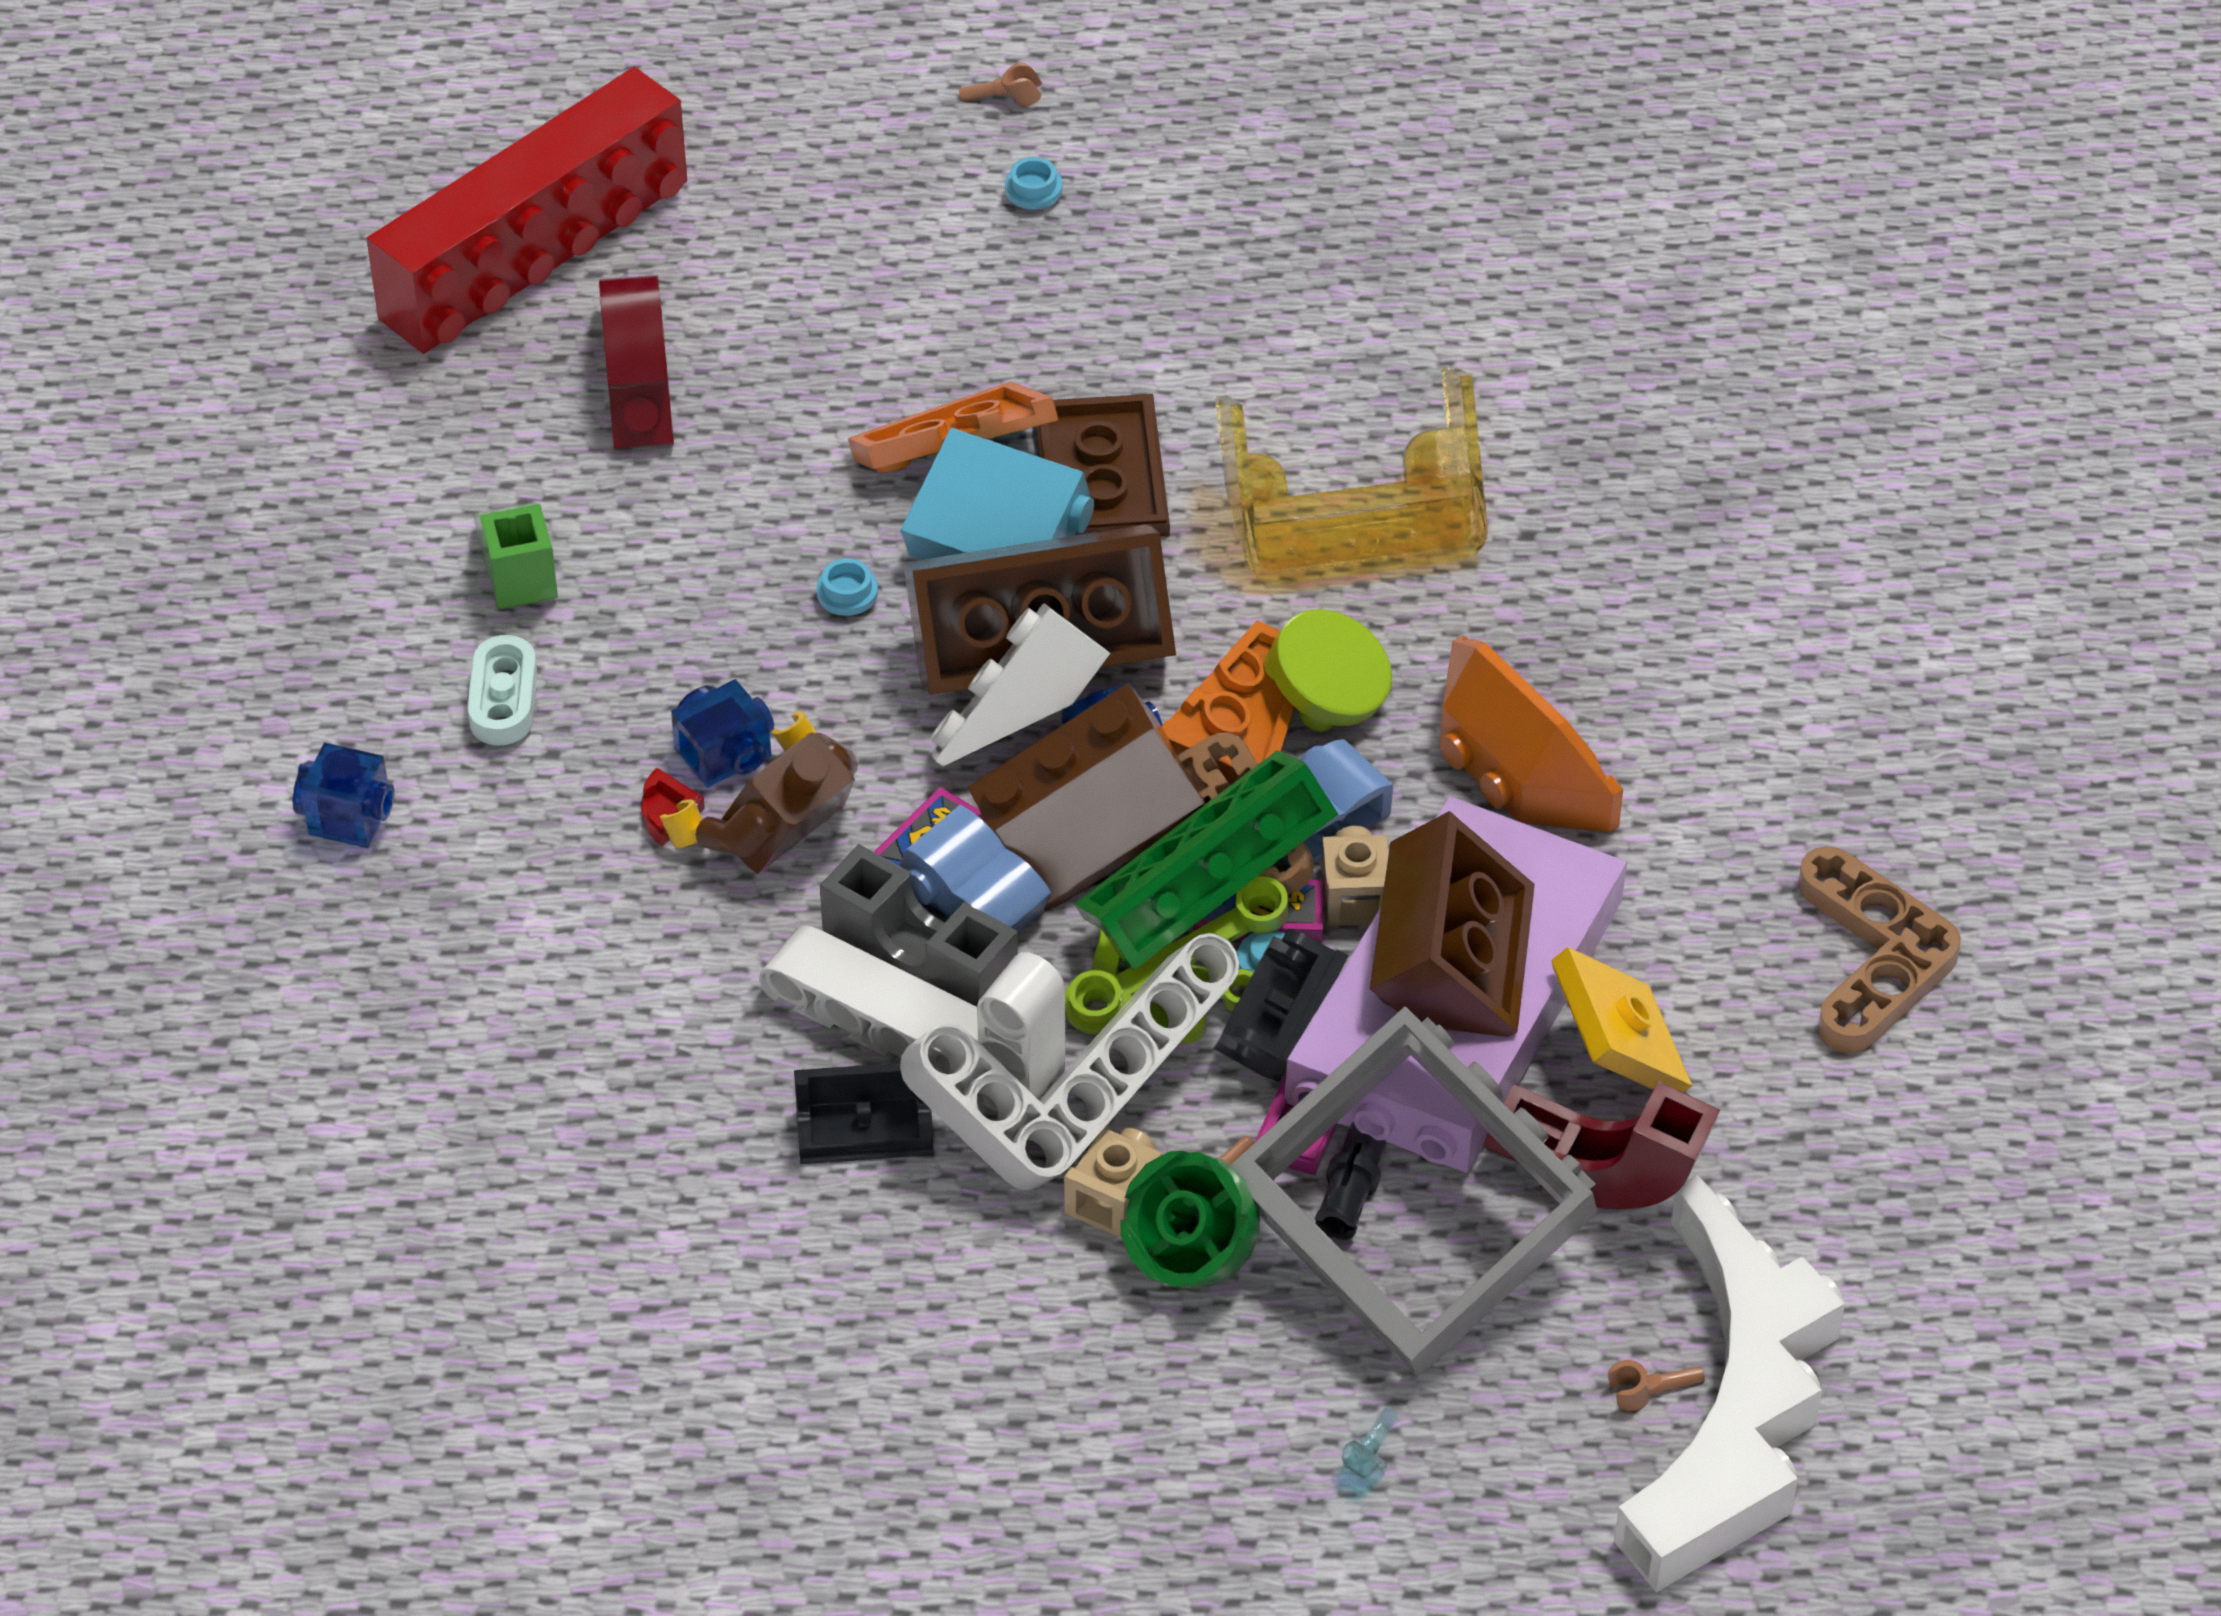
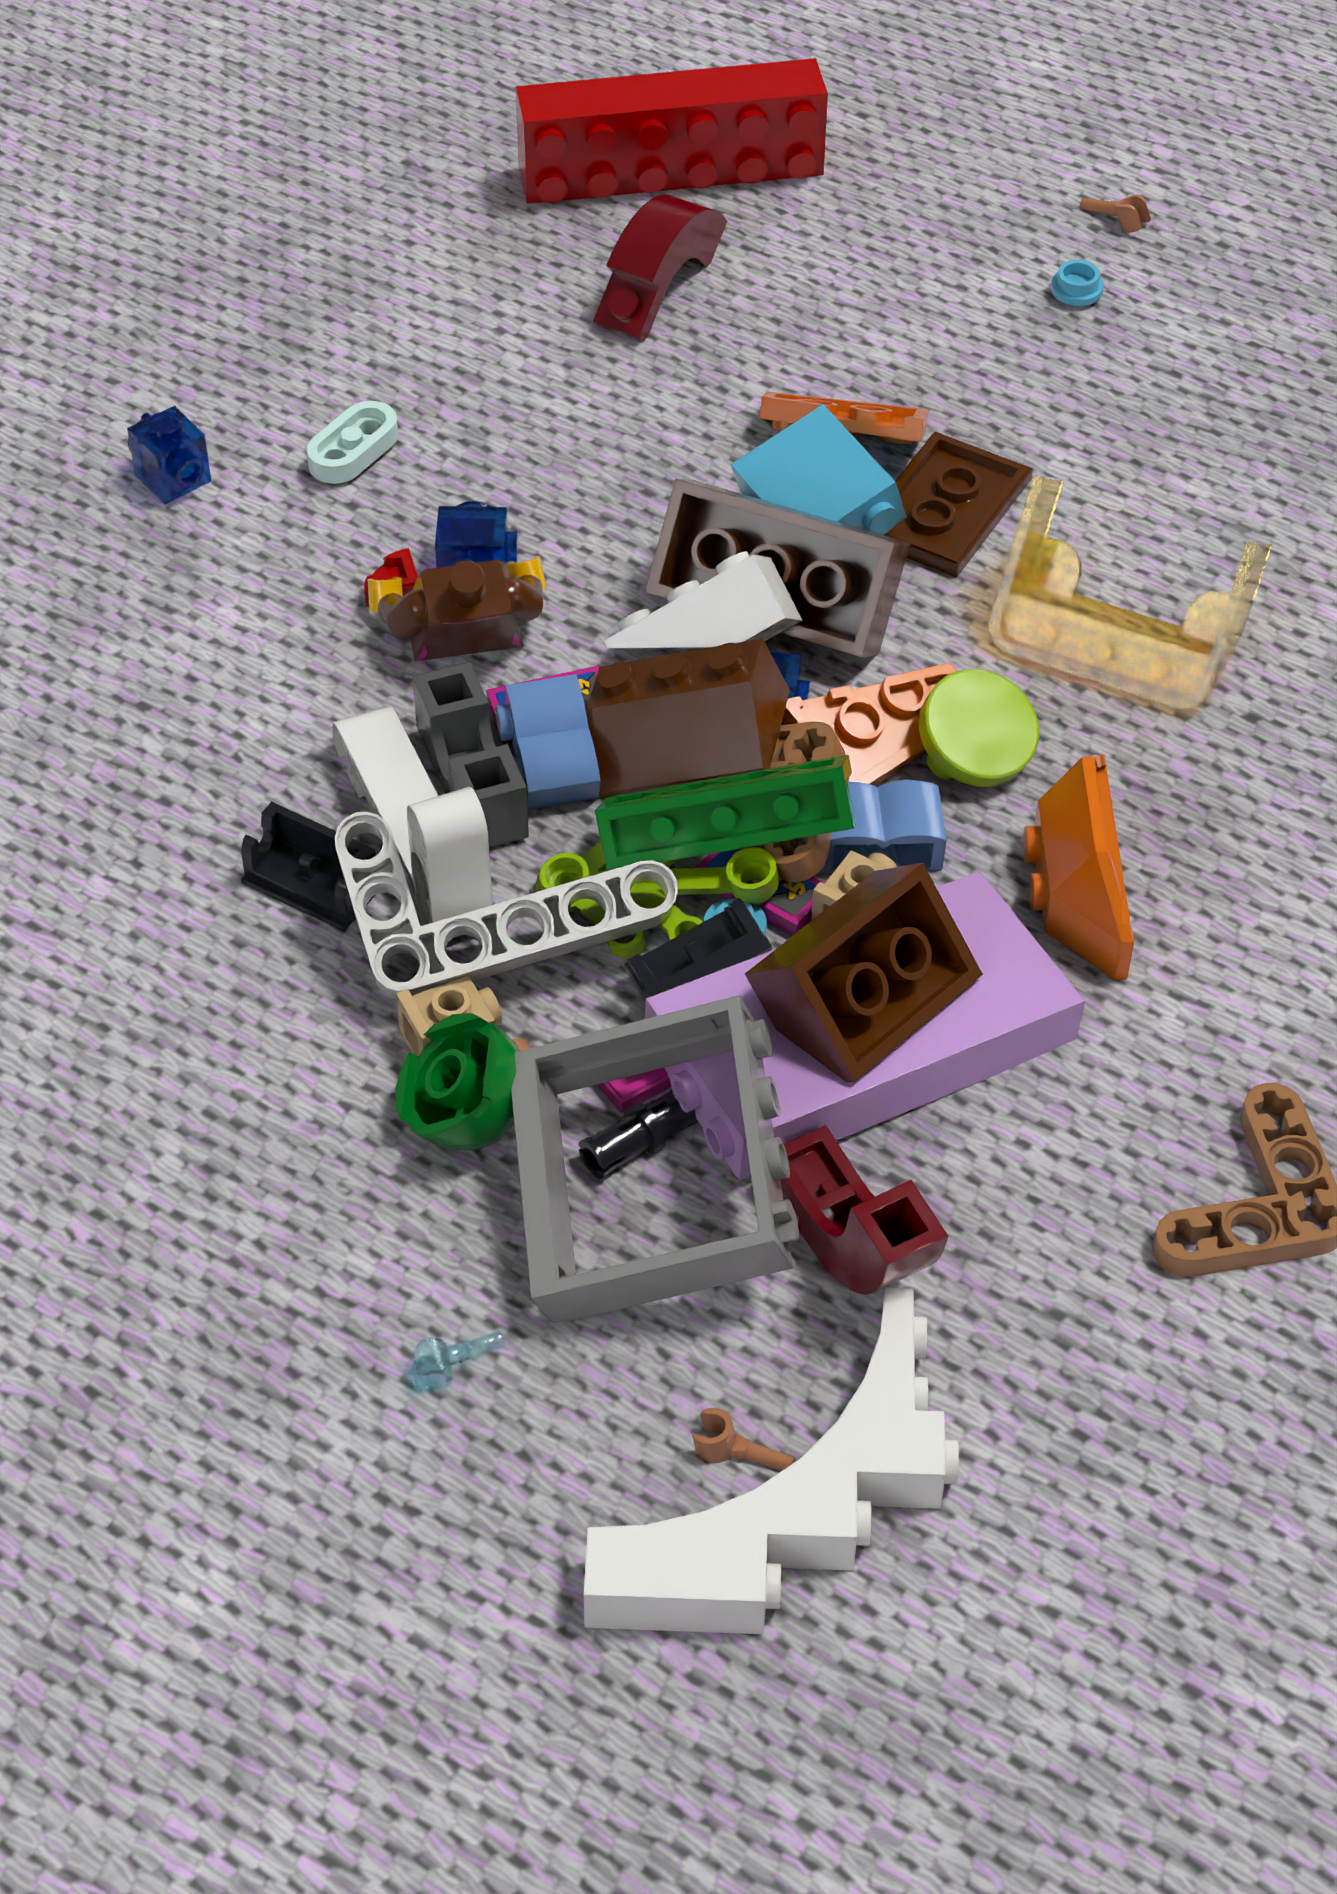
camera: 35 degrees right, 0 degrees up
(517, 554) = (446, 352): bright green slope -> none
(847, 587) = (658, 489): medium azure plate -> none
(1619, 1021) = (965, 1129): yellow plate -> none

